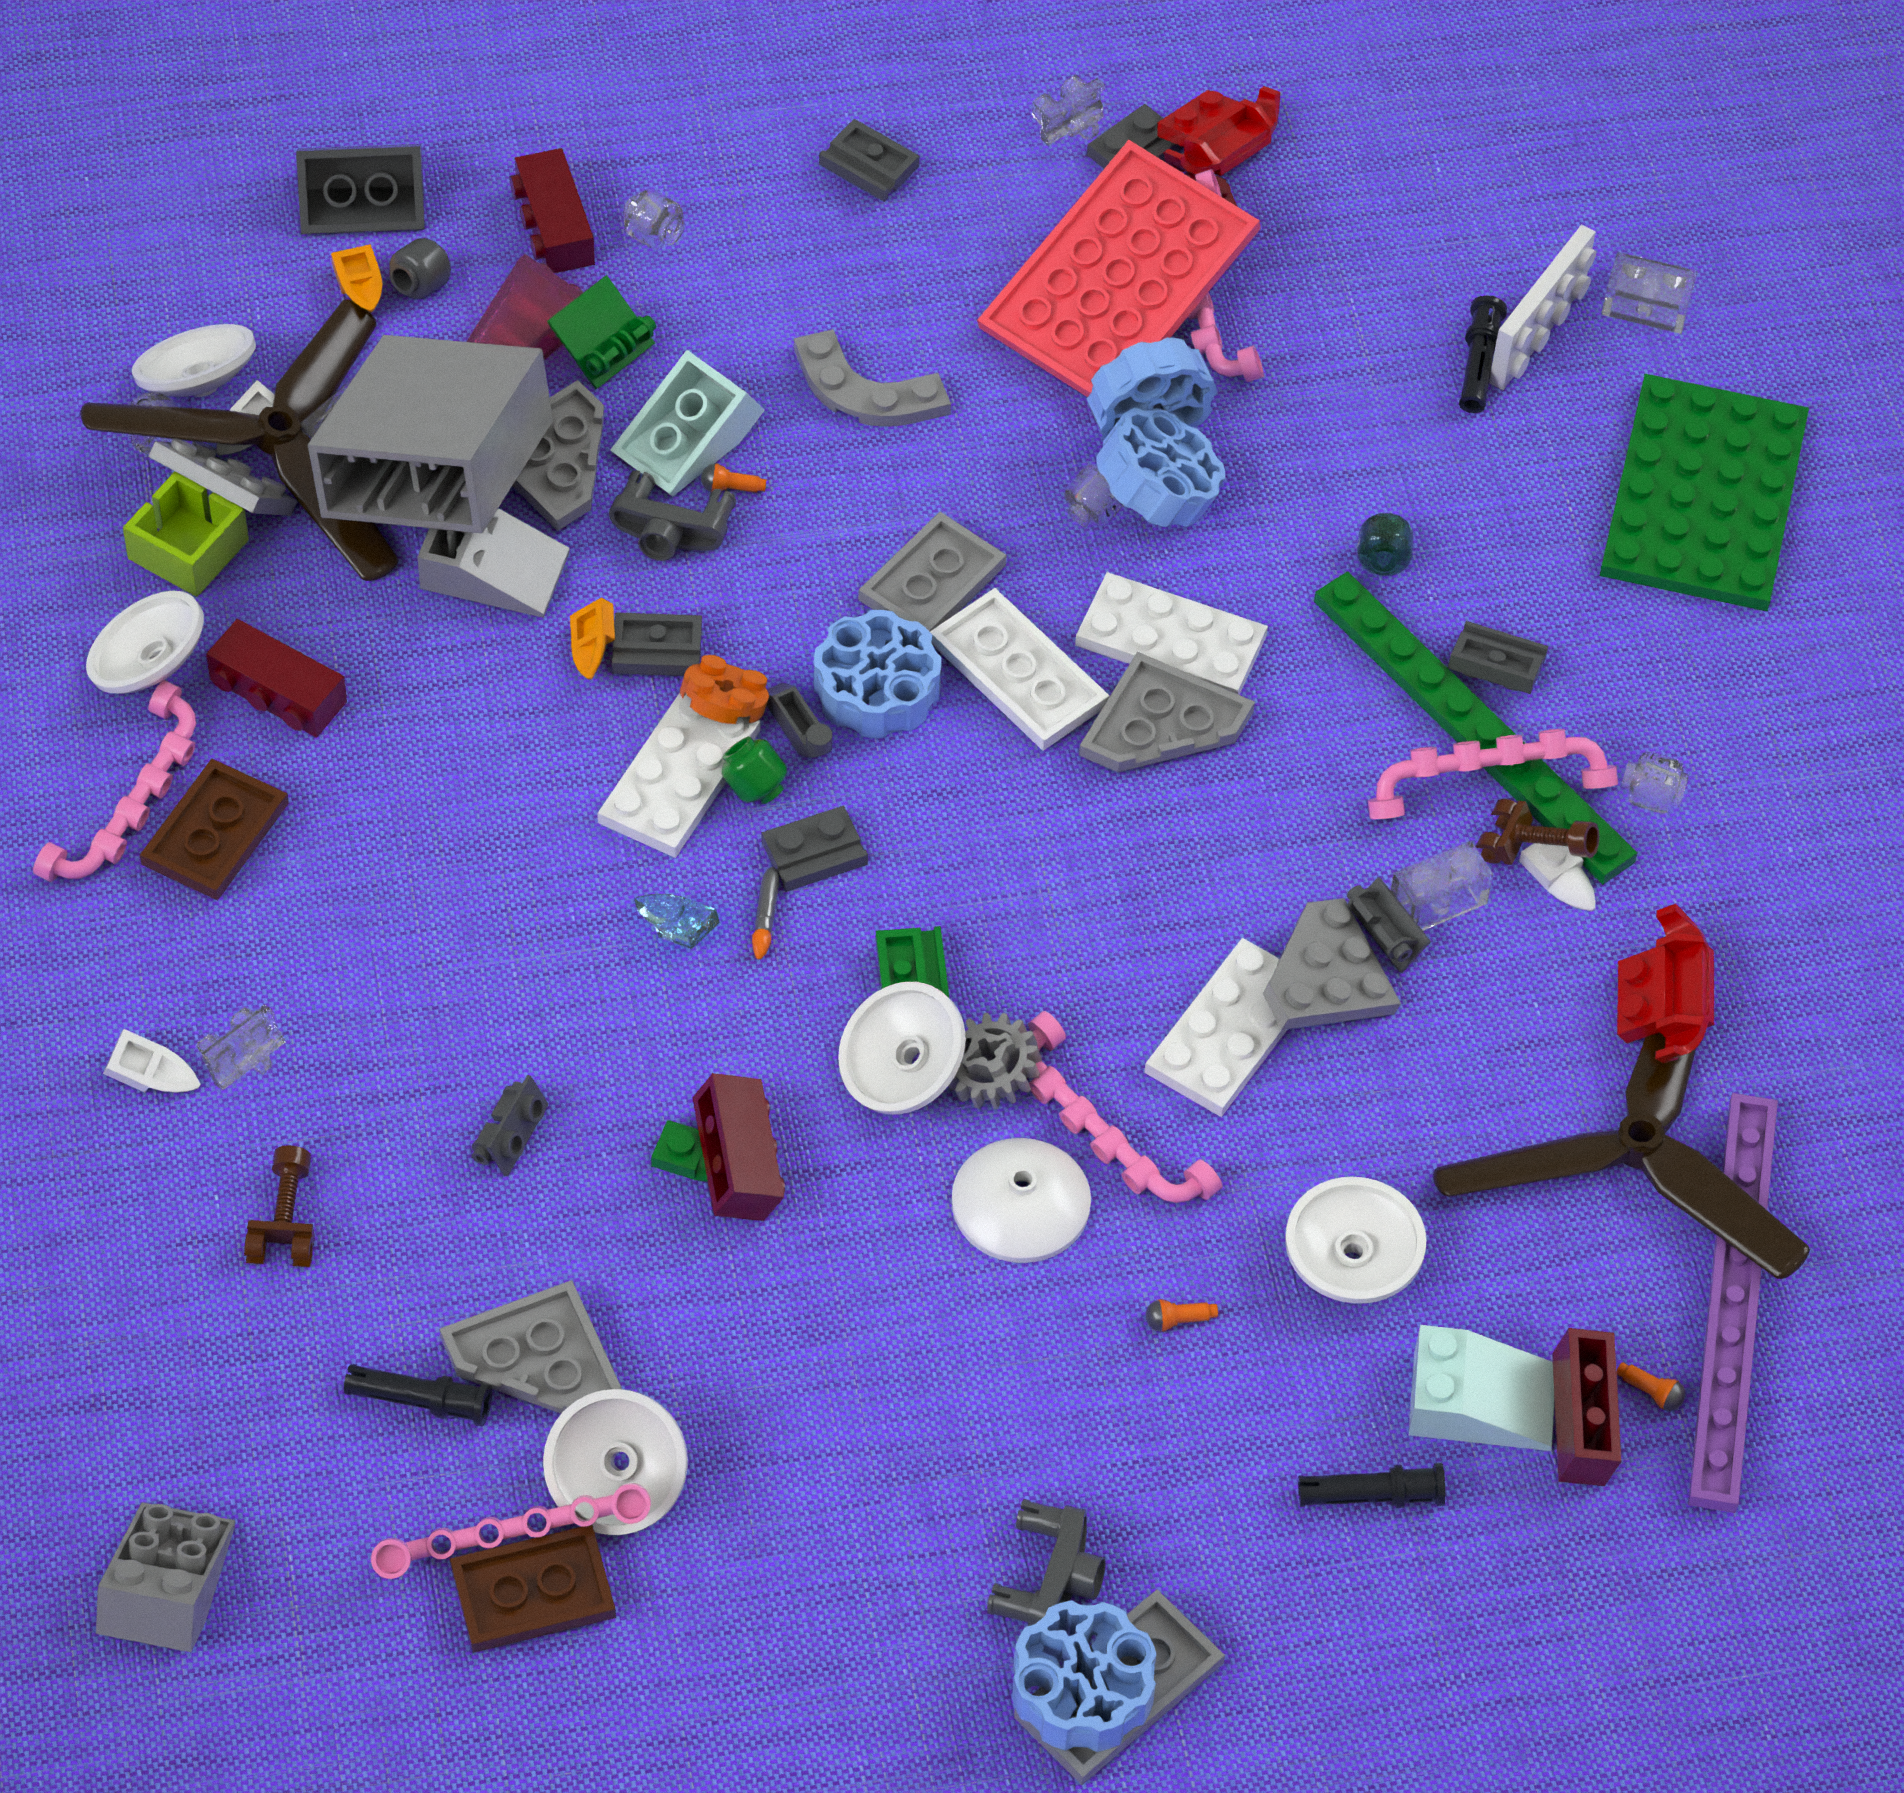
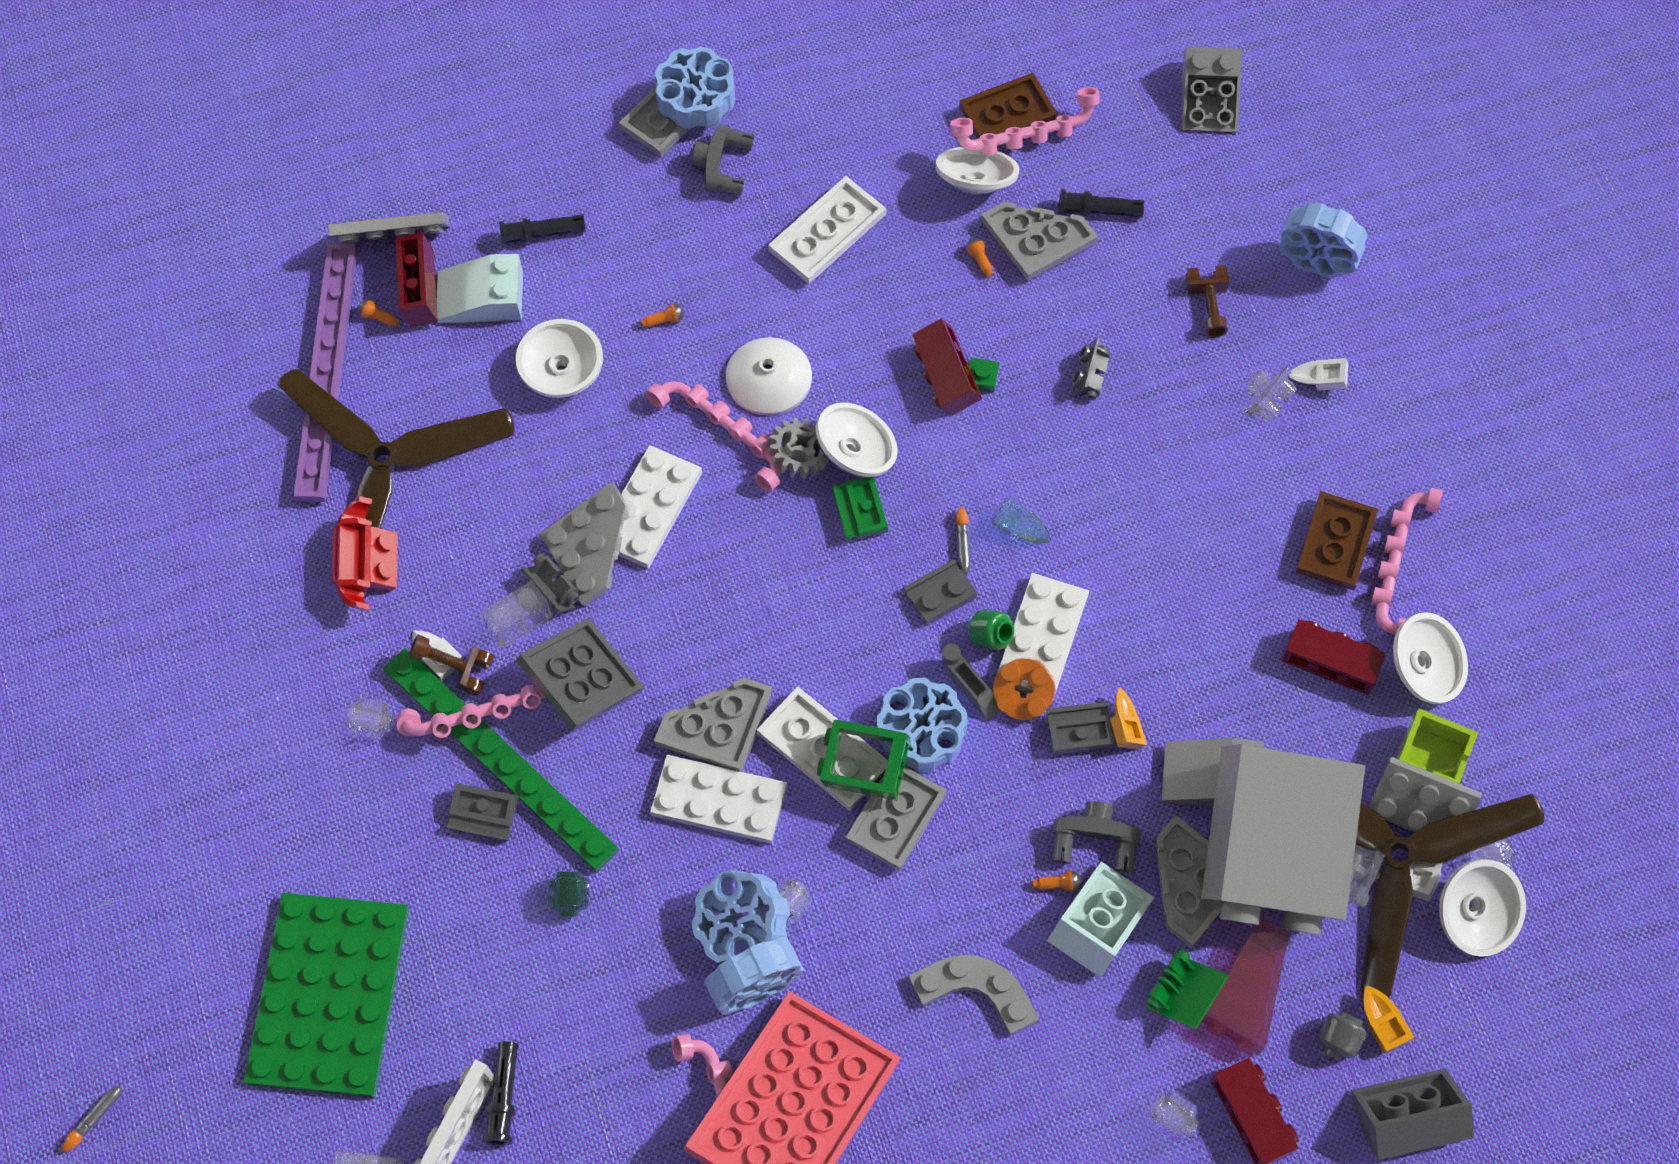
camera: 175 degrees right, 10 degrees up
(82, 1229) = (1322, 240): none -> light blue connector
(644, 1351) = (976, 249): none -> orange piece
(887, 1415) = (827, 229): none -> white plate
(958, 636) = (894, 769): none -> green window
(1352, 781) = (580, 674): none -> dark grey plate
(1631, 1500) = (379, 228): none -> light grey plate

